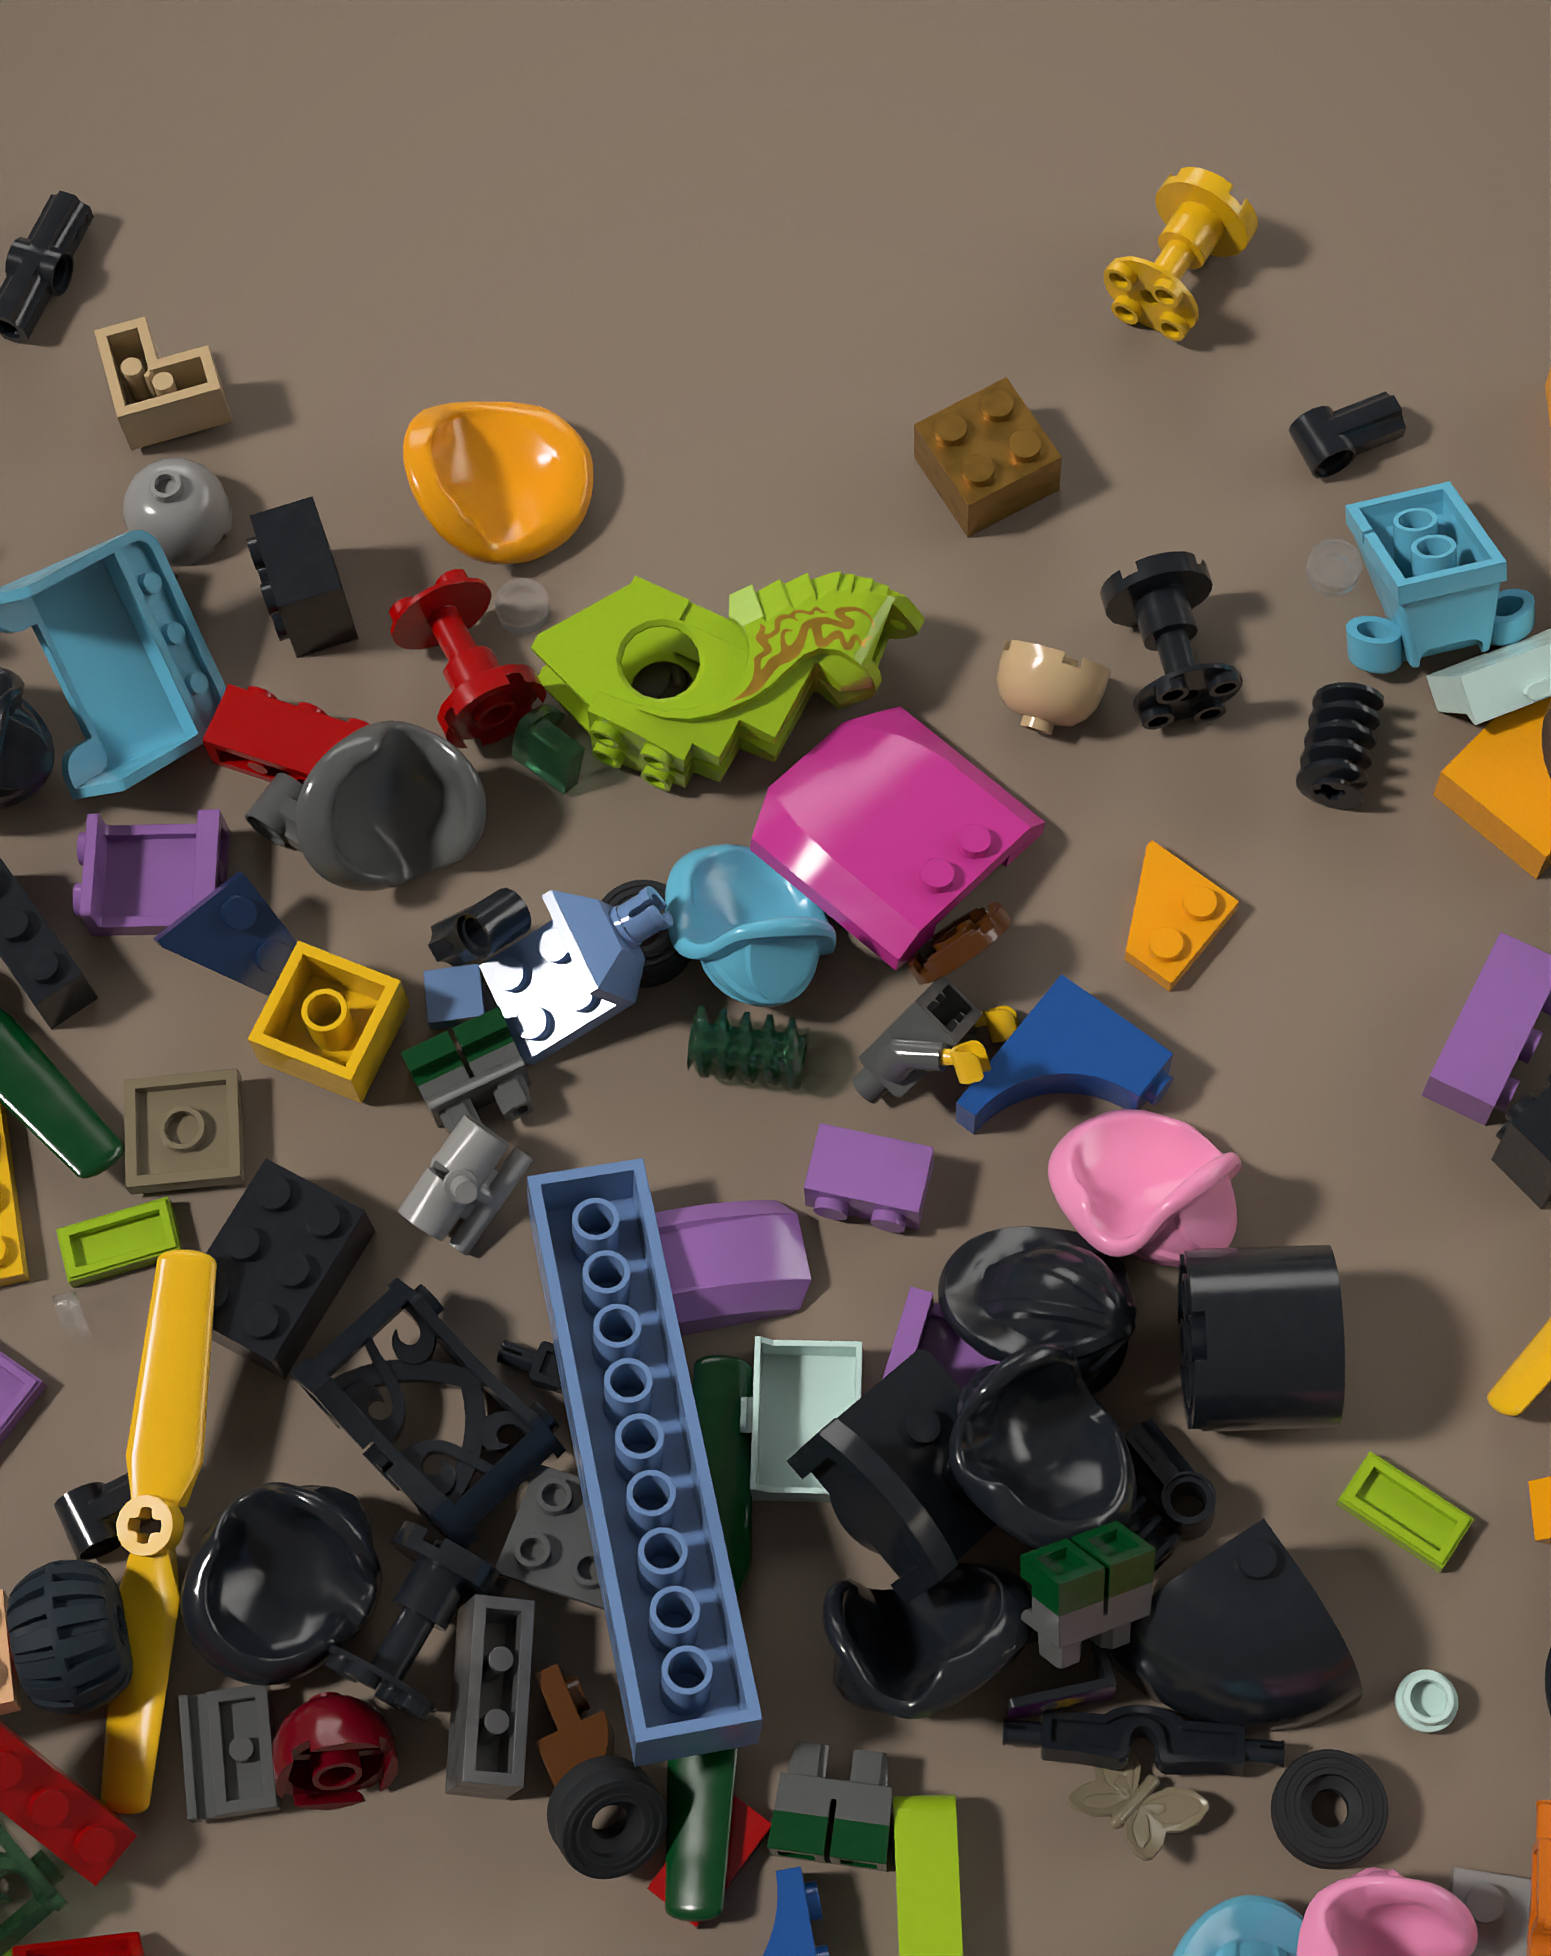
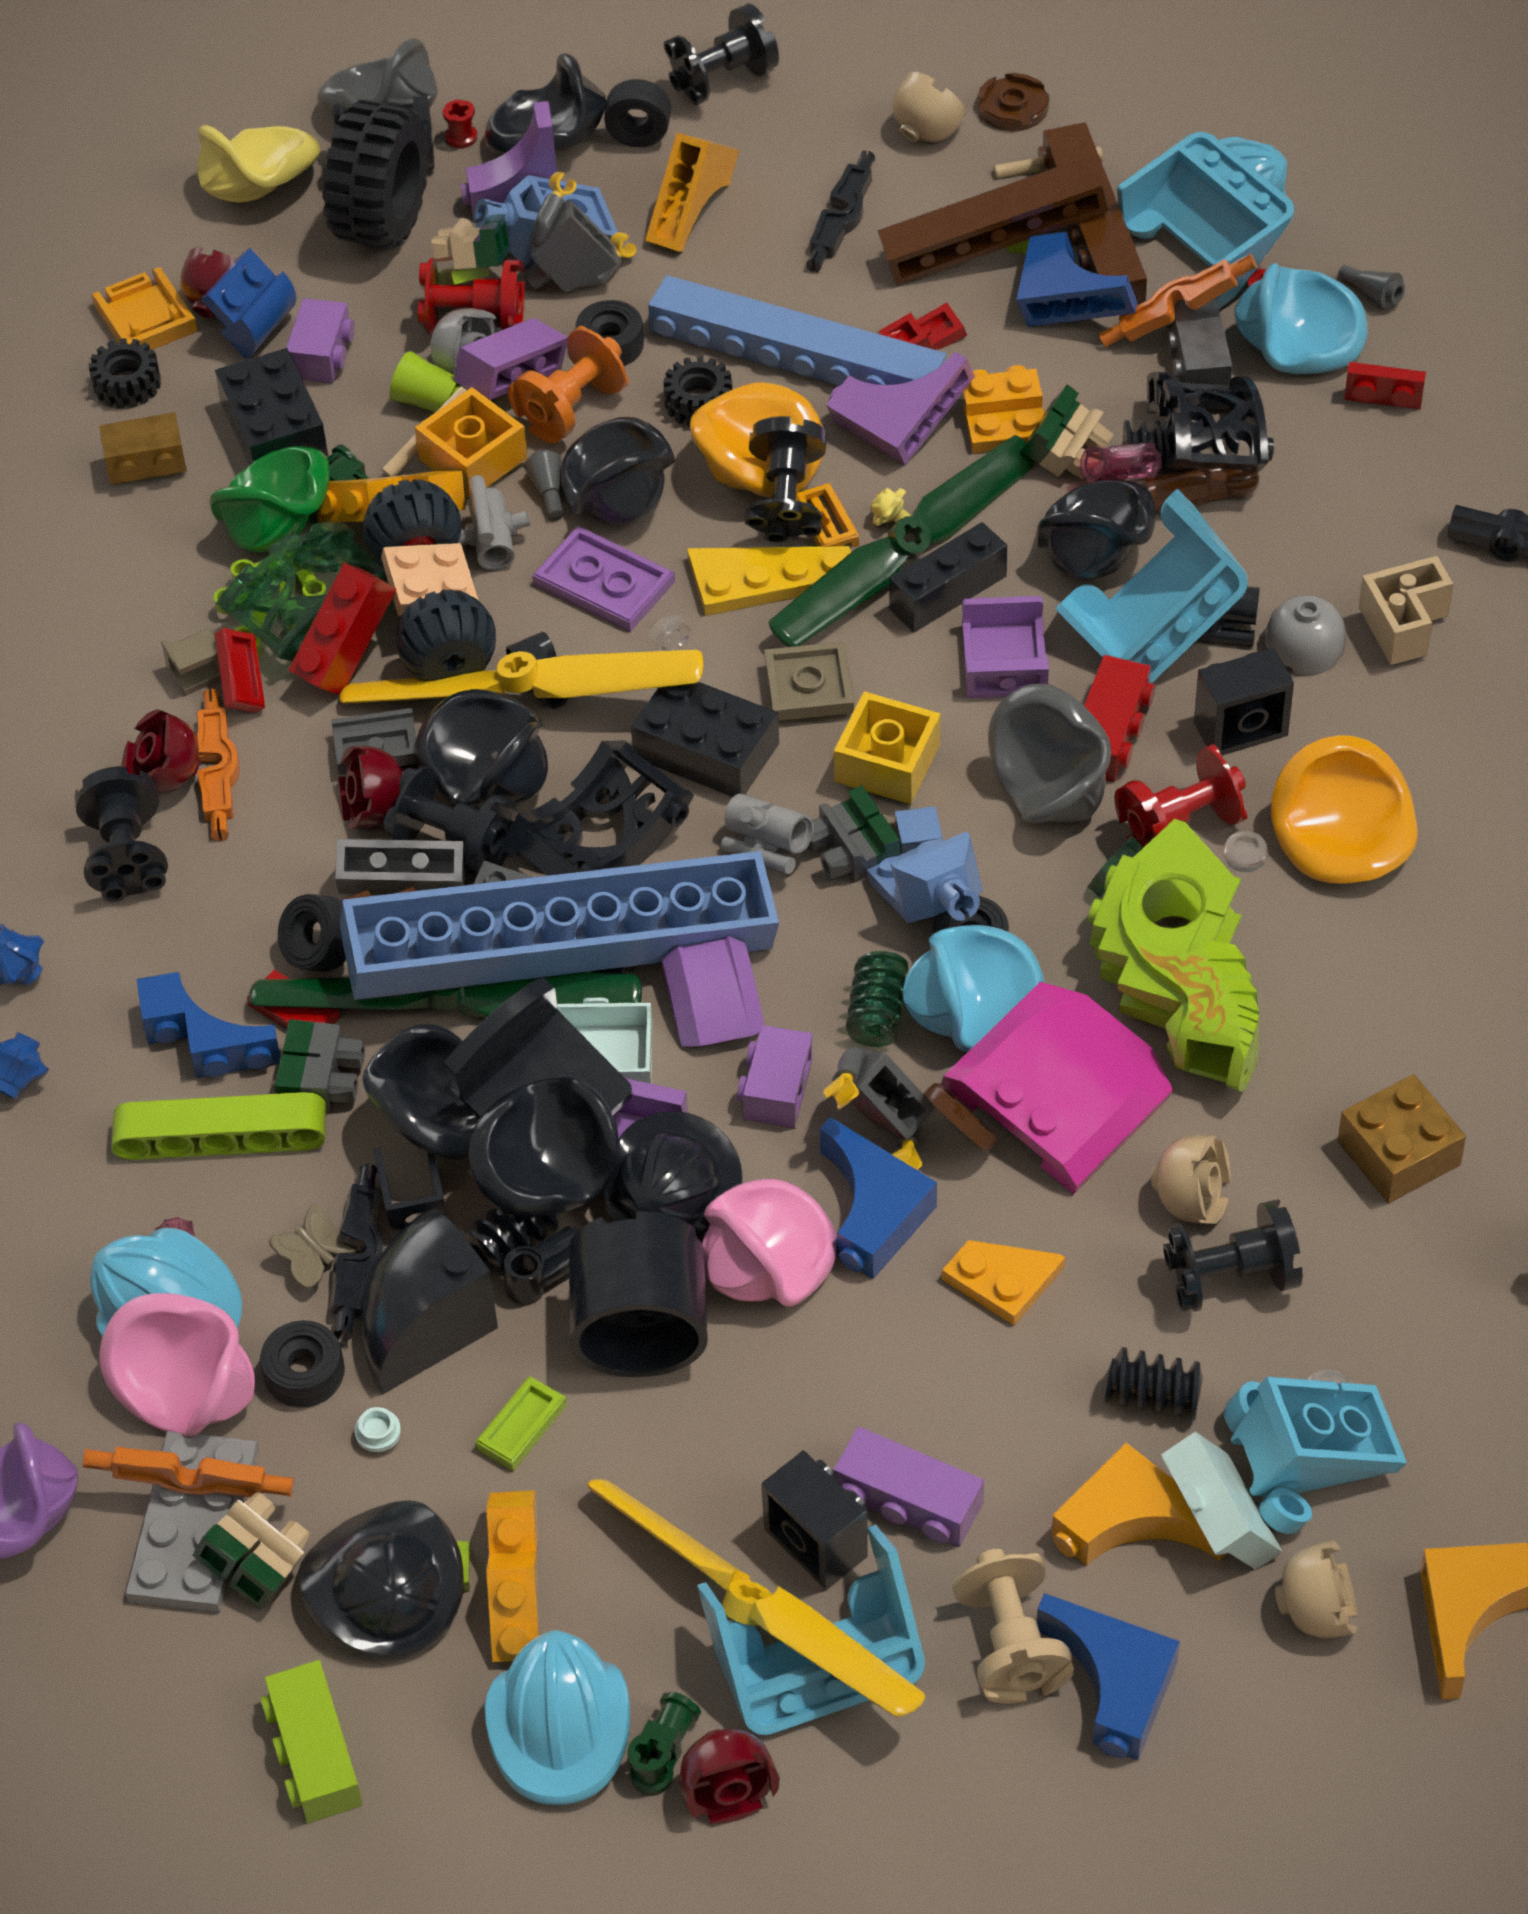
camera: 85 degrees right, 15 degrees down
(118, 1241) = (730, 657): lime tile -> none
(233, 935) = (952, 687): dark blue wing -> none
(480, 928) = (957, 818): black piece -> none
(1088, 1590) = (437, 1171): dark green hips -> none
(1334, 438) = (1452, 1390): black piece -> none

